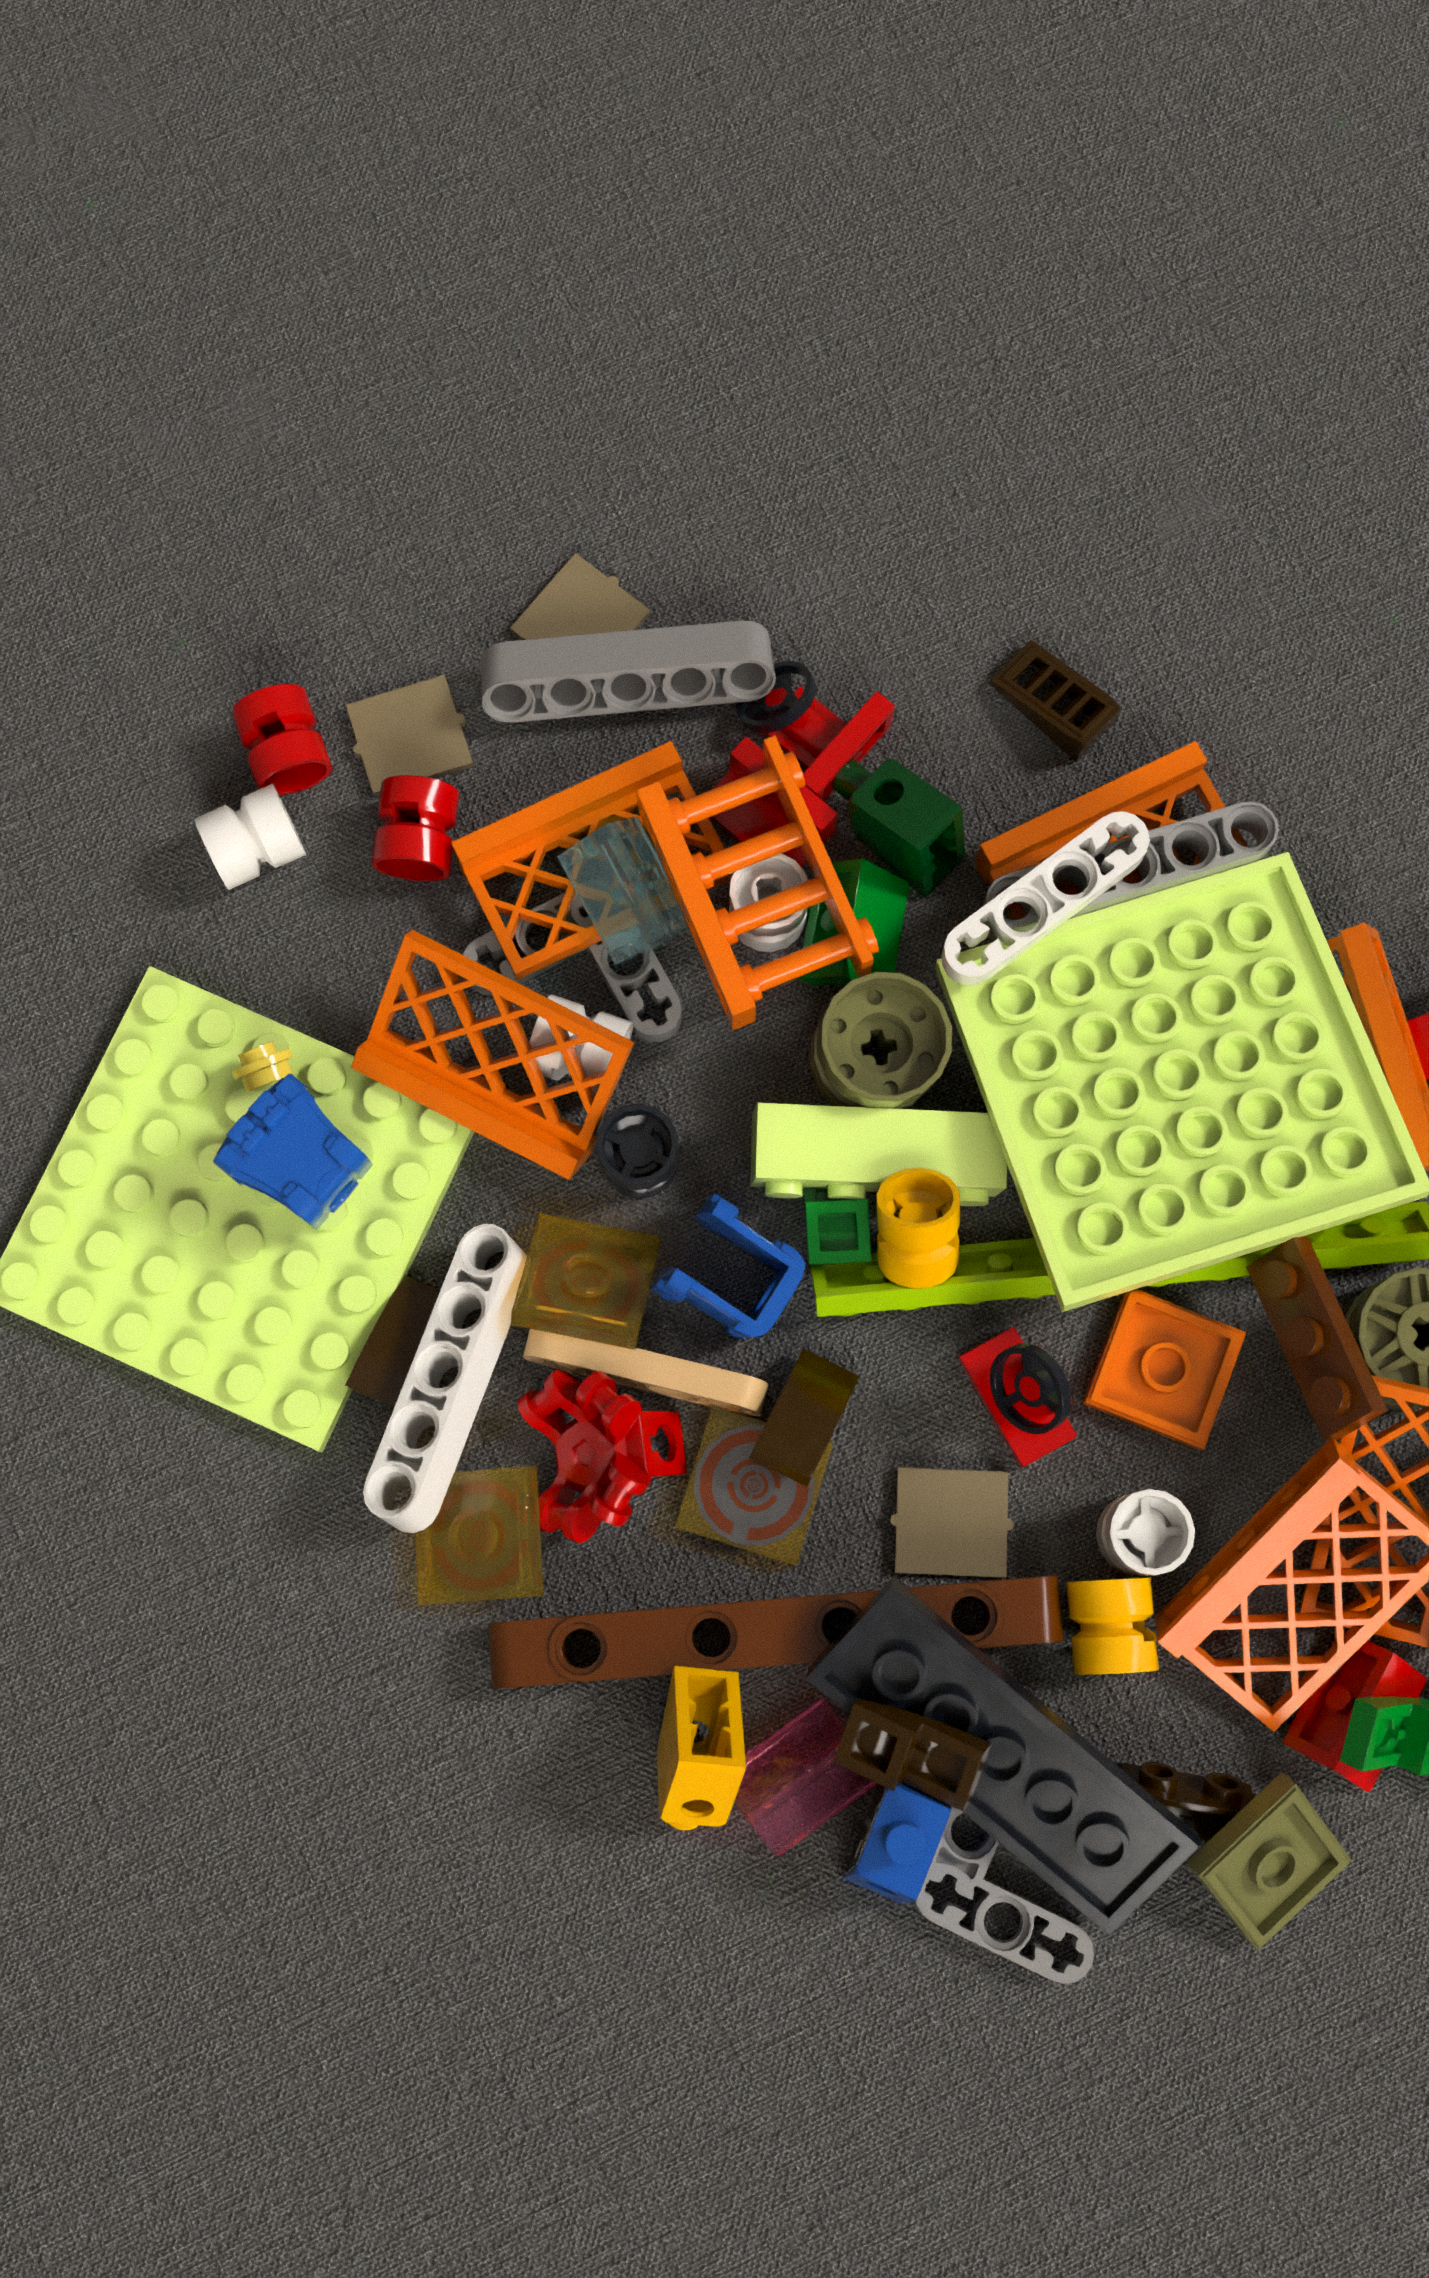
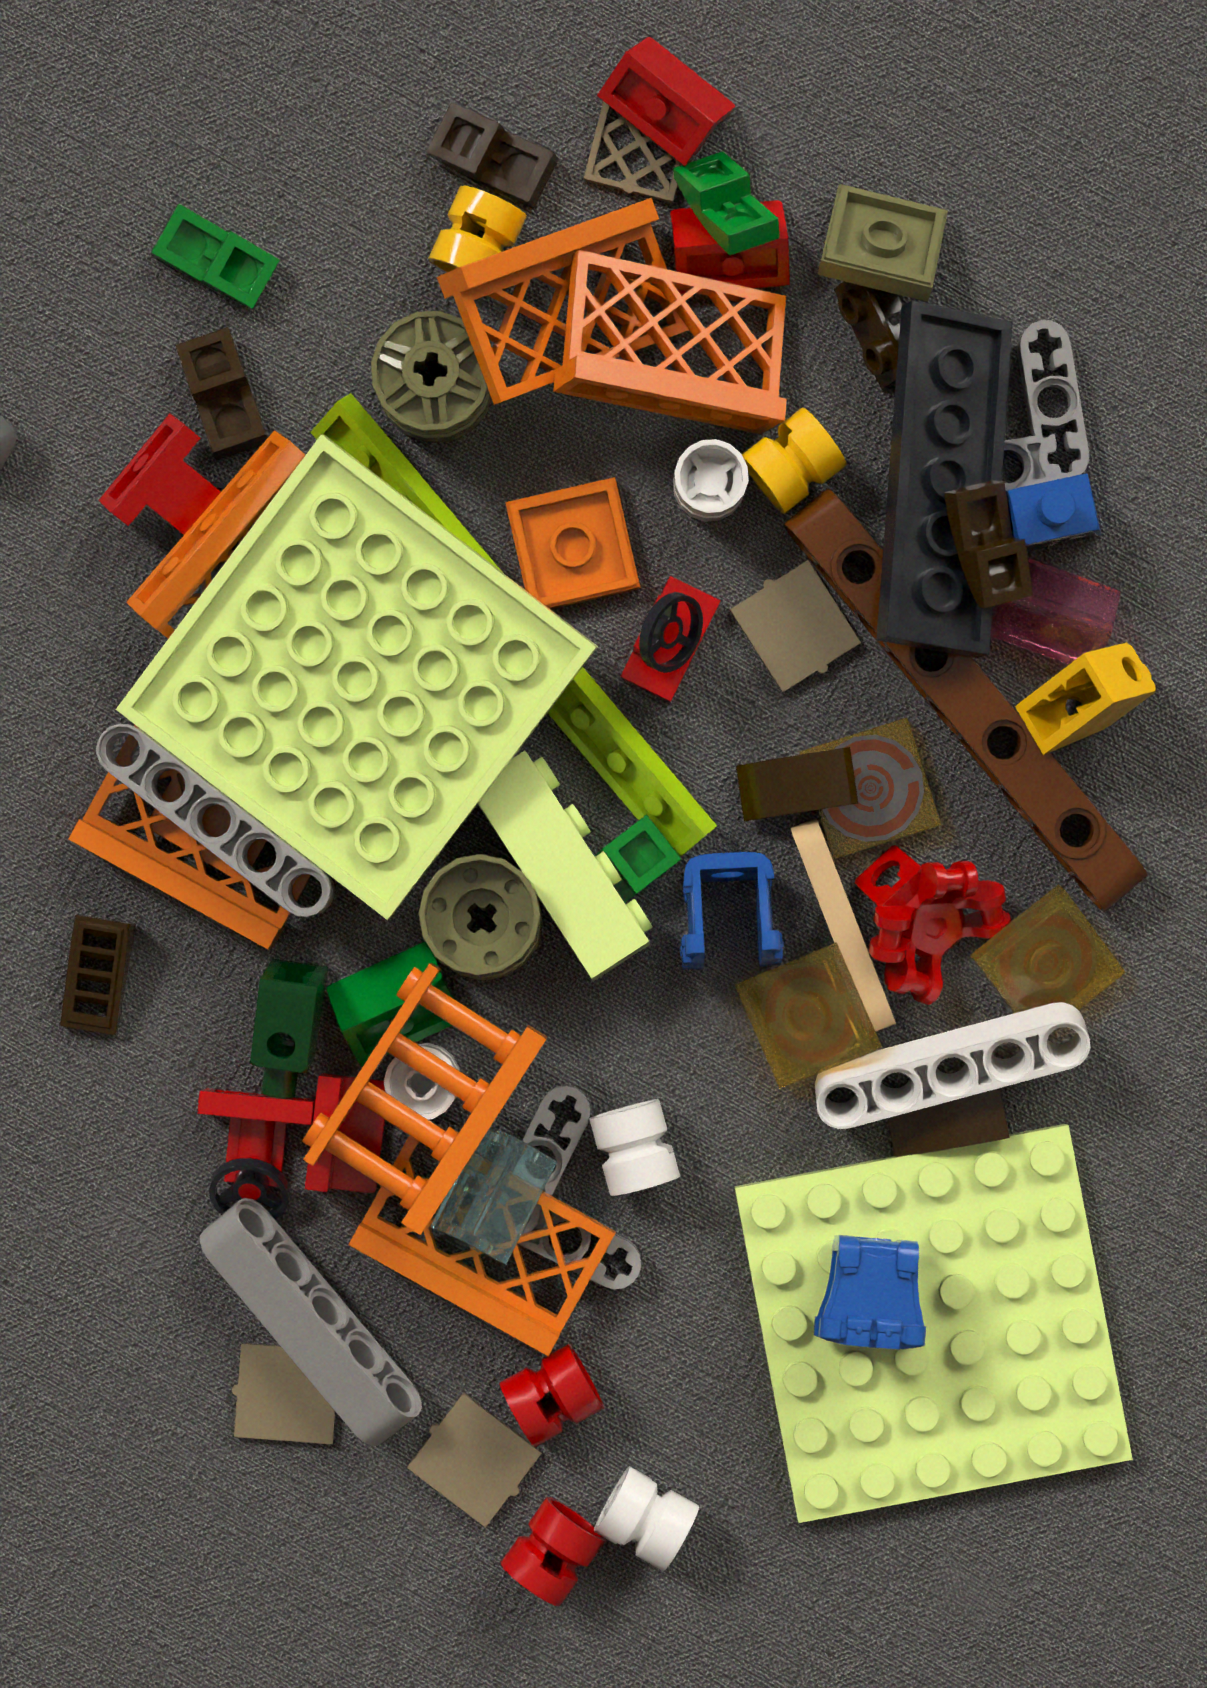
camera: 125 degrees left, 10 degrees up
(262, 1066) = (820, 1371): light yellow plate -> none
(485, 1102) = (726, 1198): orange fence -> none
(638, 1151) = (685, 1045): black wheel -> none
(918, 1227) = (603, 794): yellow wheel -> none
(1049, 903) = (291, 861): white beam -> none
(1316, 1339) = (489, 449): reddish brown plate -> none

